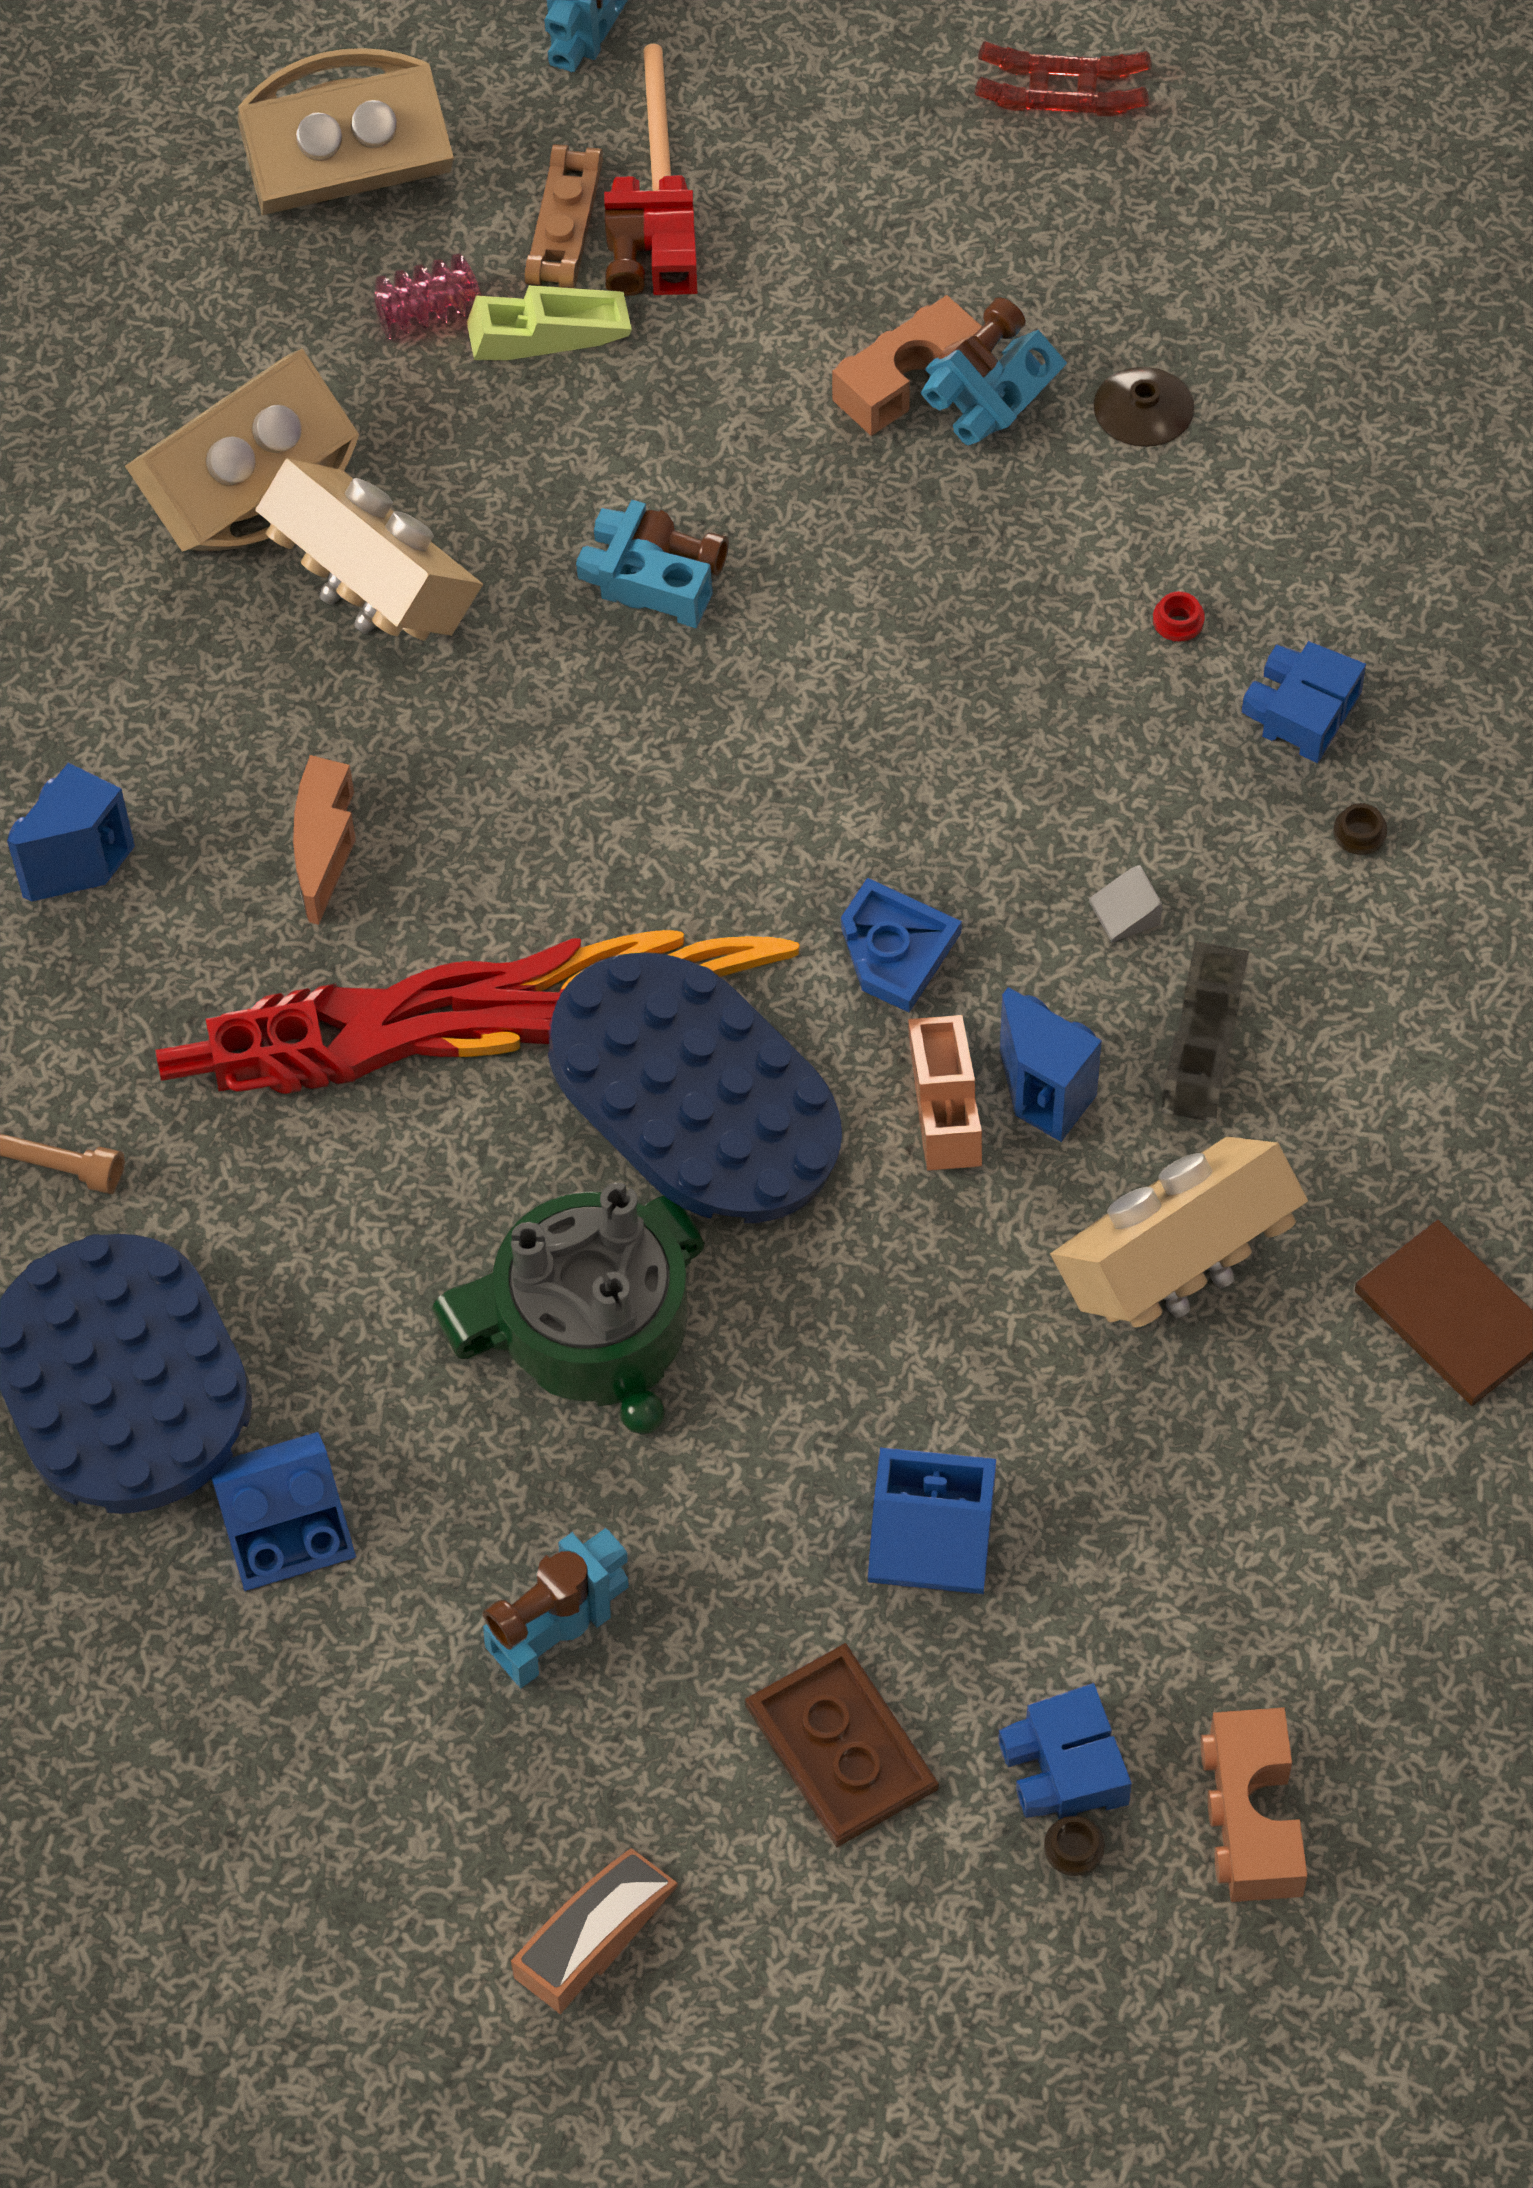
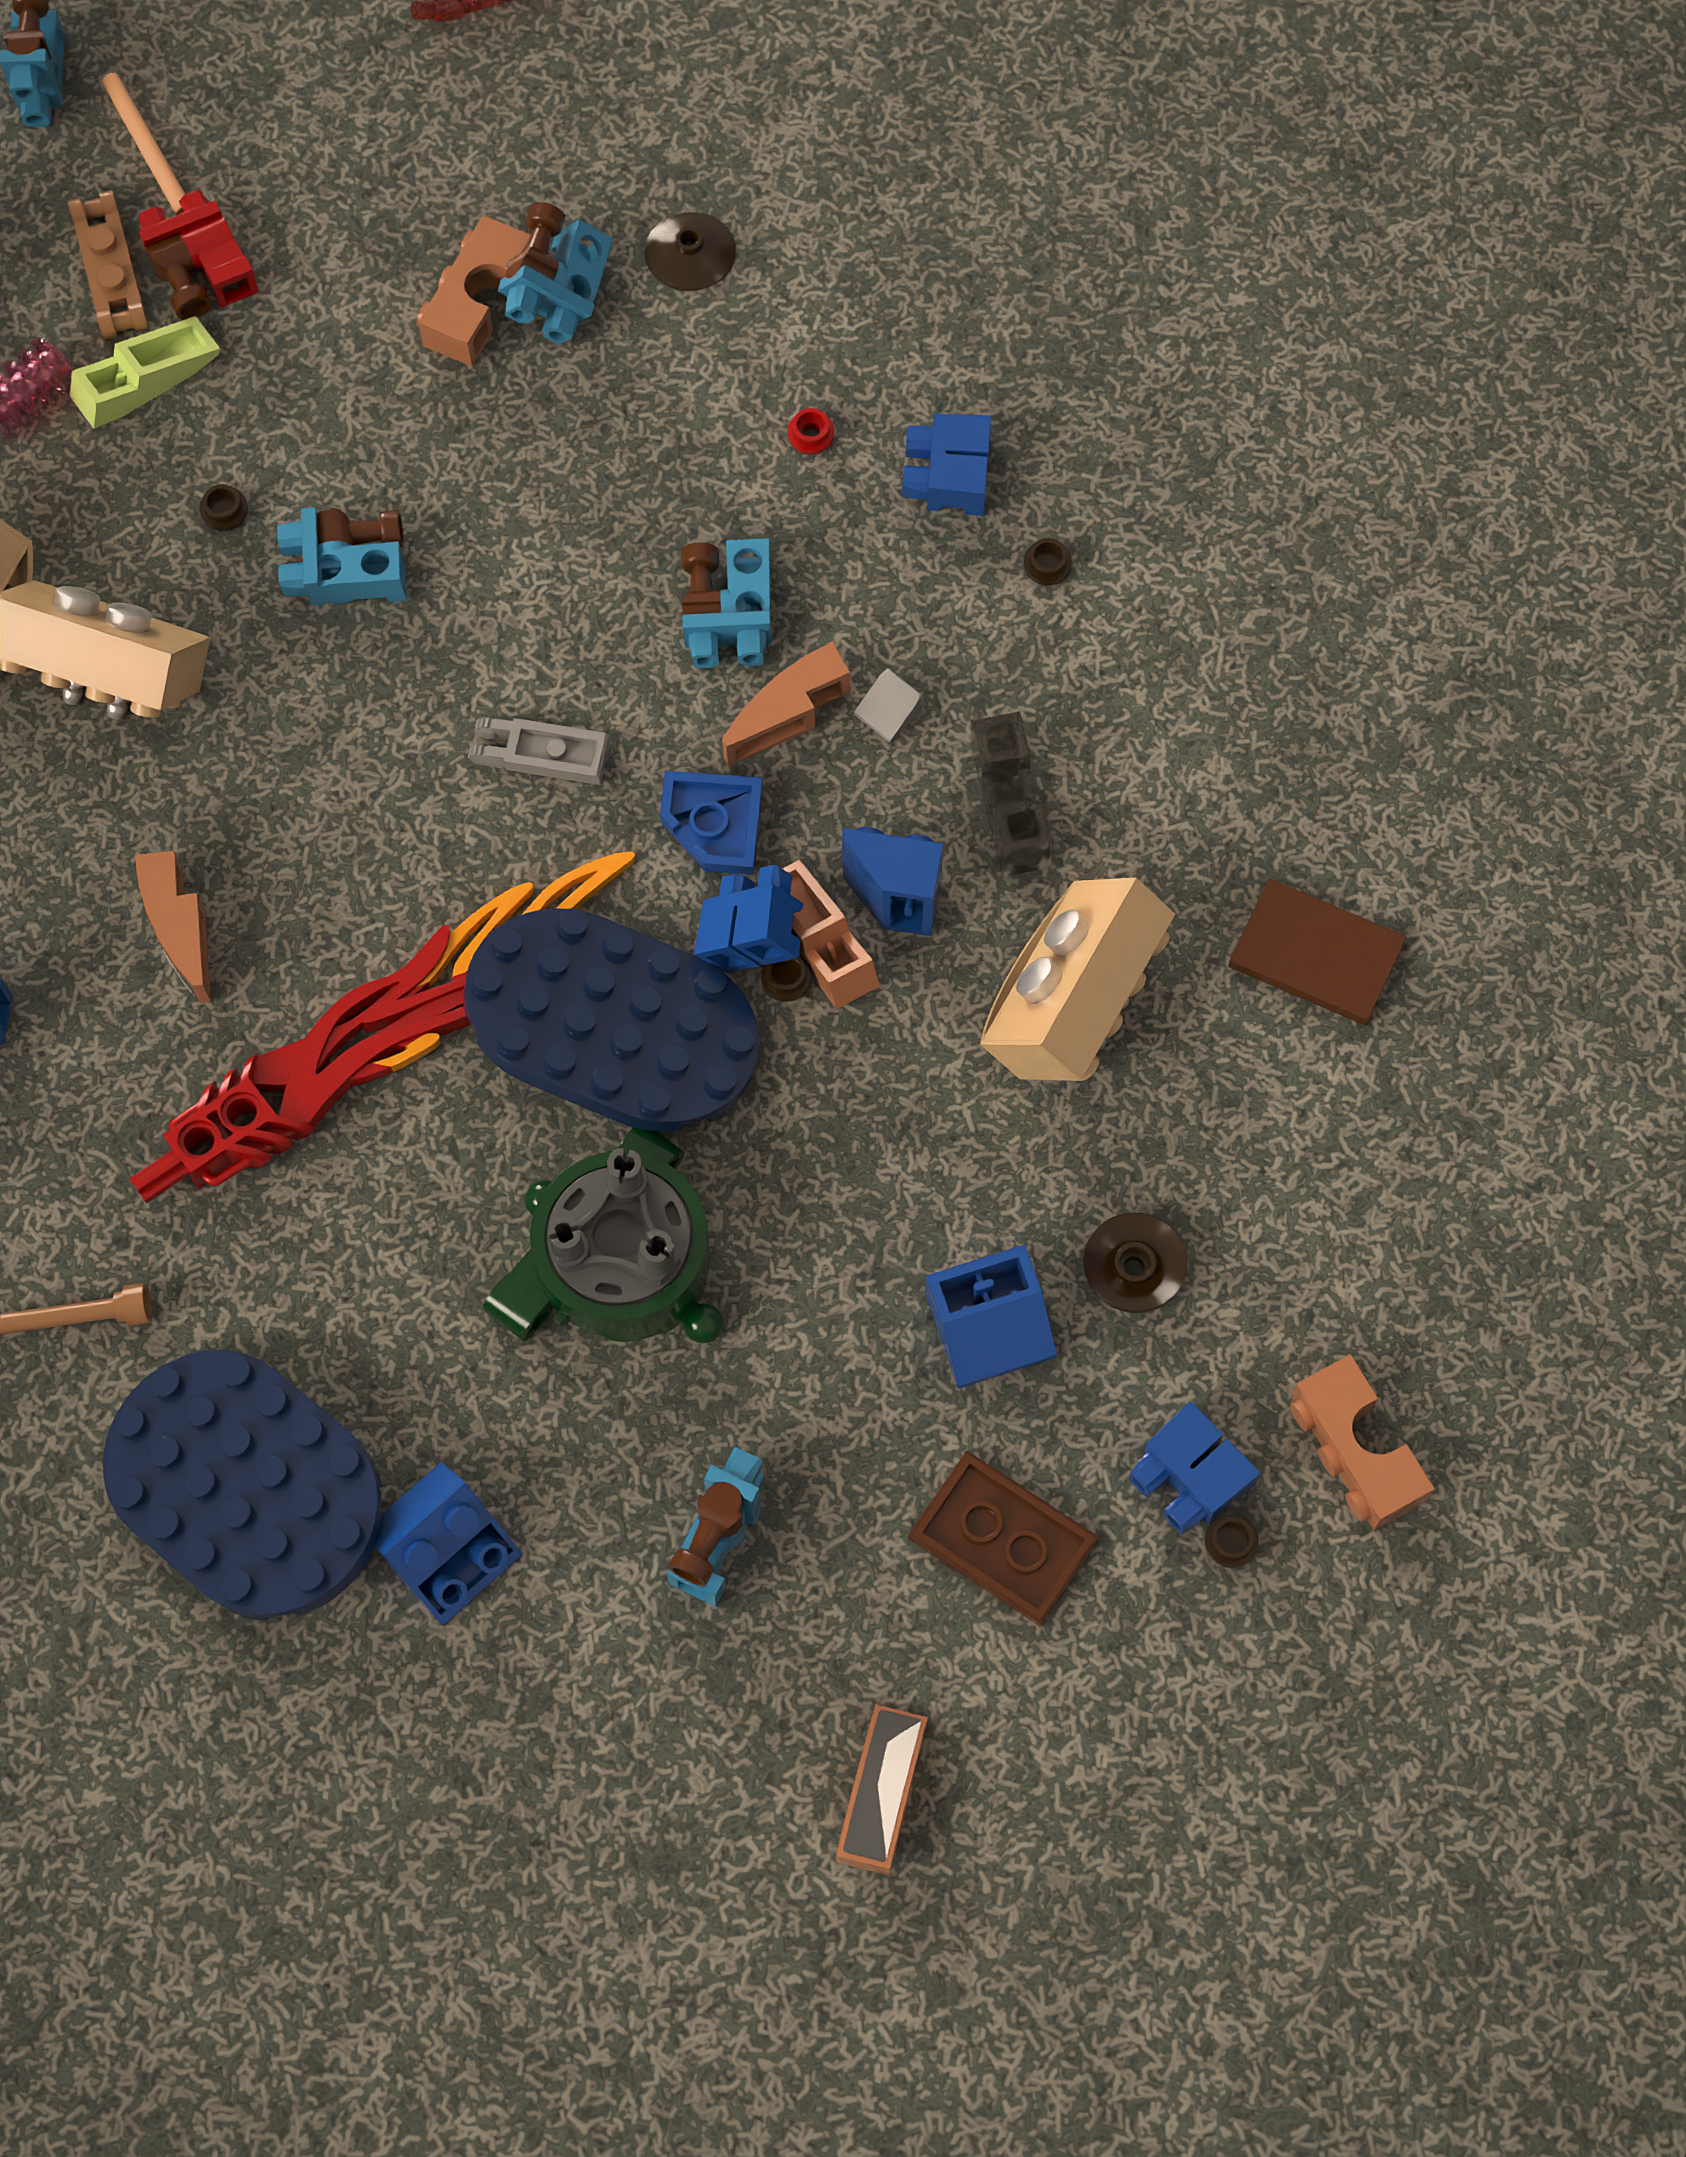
camera: 25 degrees left, 10 degrees up
(561, 475) = (223, 507): none -> dark brown plate
(757, 813) = (542, 749): none -> light grey hinge
(876, 1049) = (748, 922): none -> blue hips
(892, 1120) = (786, 979): none -> dark brown plate
(1006, 759) = (728, 615): none -> dark azure hips
(1019, 862) = (787, 704): none -> nougat slope
(1109, 1508) = (1140, 1239): none -> dark brown dish

